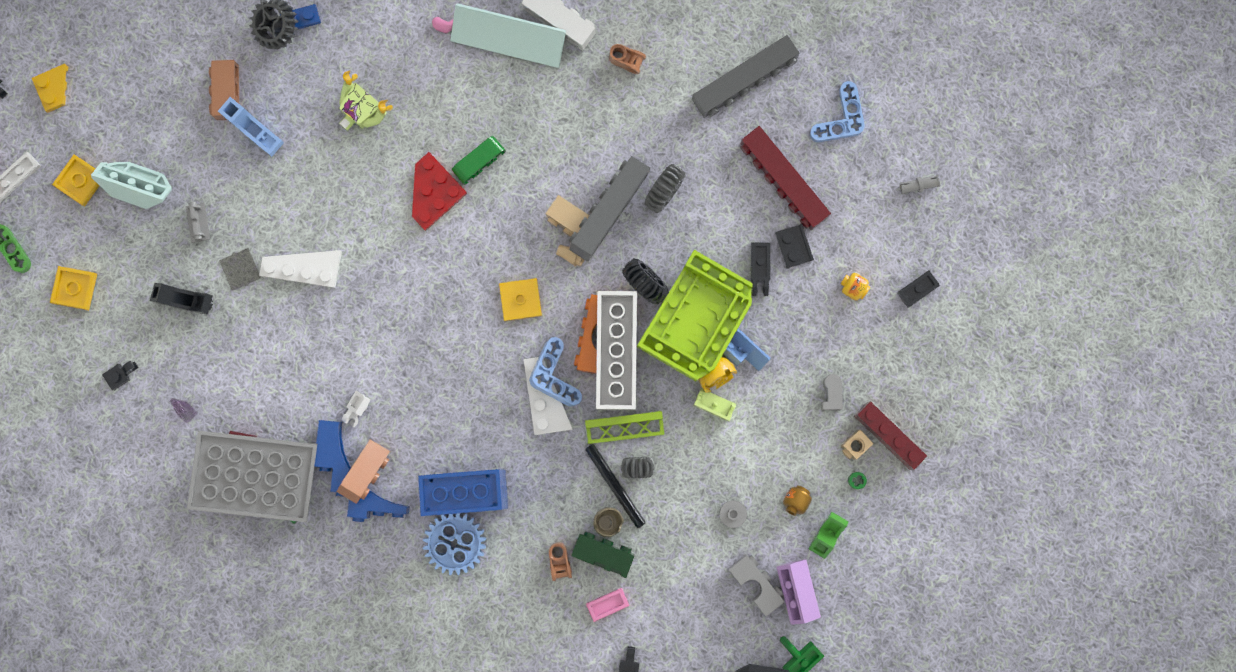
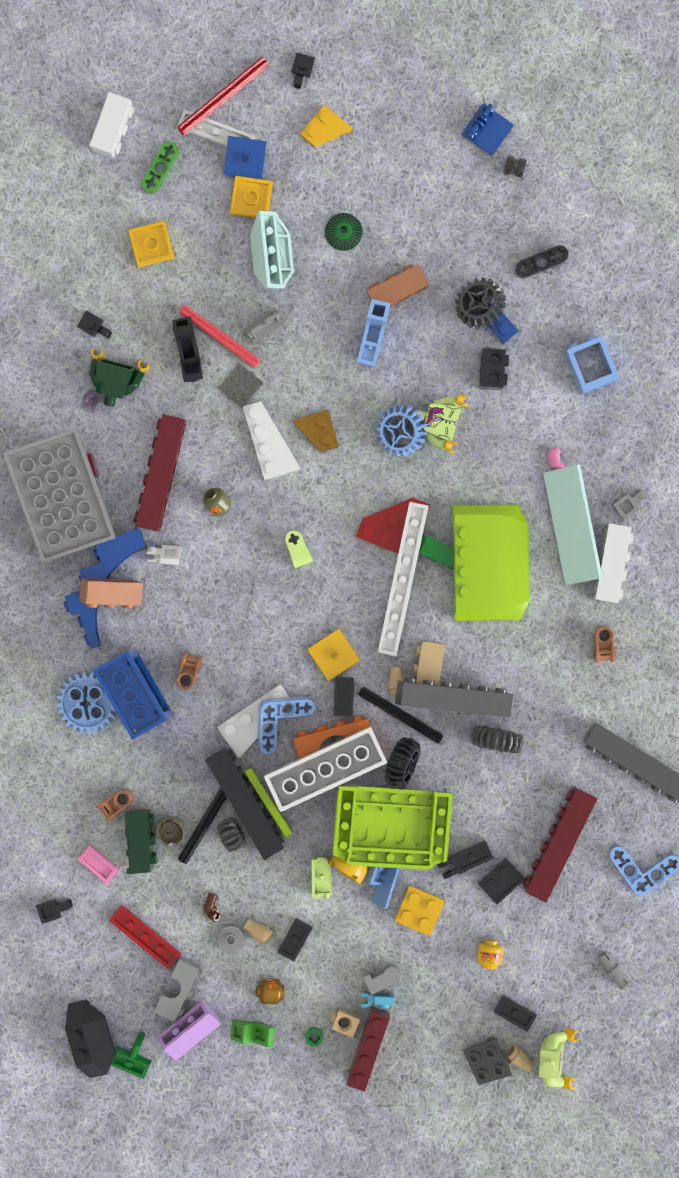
camera: 60 degrees right, 5 degrees up
(40, 168) = (245, 157): none -> blue plate
(157, 120) = (347, 240): none -> dish
(174, 377) = (114, 378): none -> dark green torso
(188, 265) = (219, 336): none -> coral axle
(281, 376) = (161, 473): none -> dark red brick
(314, 218) = (318, 430): none -> pearl gold wing
(331, 337) = (216, 501): none -> olive head
(335, 43) = (488, 369): none -> black brick
(343, 138) = (393, 443): none -> light blue gear
(413, 285) = (299, 553): none -> yellowish green piece
(468, 434) = (189, 669): none -> nougat piece
(481, 204) = (403, 578): none -> white plate
(506, 123) = (490, 562): none -> lime slope
(562, 307) = (343, 696): none -> black plate
(603, 265) = (400, 715): none -> black axle
(614, 441) = (245, 805): none -> black brick
(694, 592) = (145, 936): none -> red plate
(699, 520) = (210, 908): none -> reddish brown arm
(738, 485) = (258, 931): none -> tan cone
(760, 455) = (294, 939): none -> black plate
(786, 331) = (419, 910): none -> yellow plate
(851, 402) = (381, 999): none -> medium azure plate
(951, 334) = (487, 1061): none -> dark grey hinge
(959, 305) = (517, 1057): none -> tan cone
(974, 274) = (552, 1059): none -> yellowish green torso

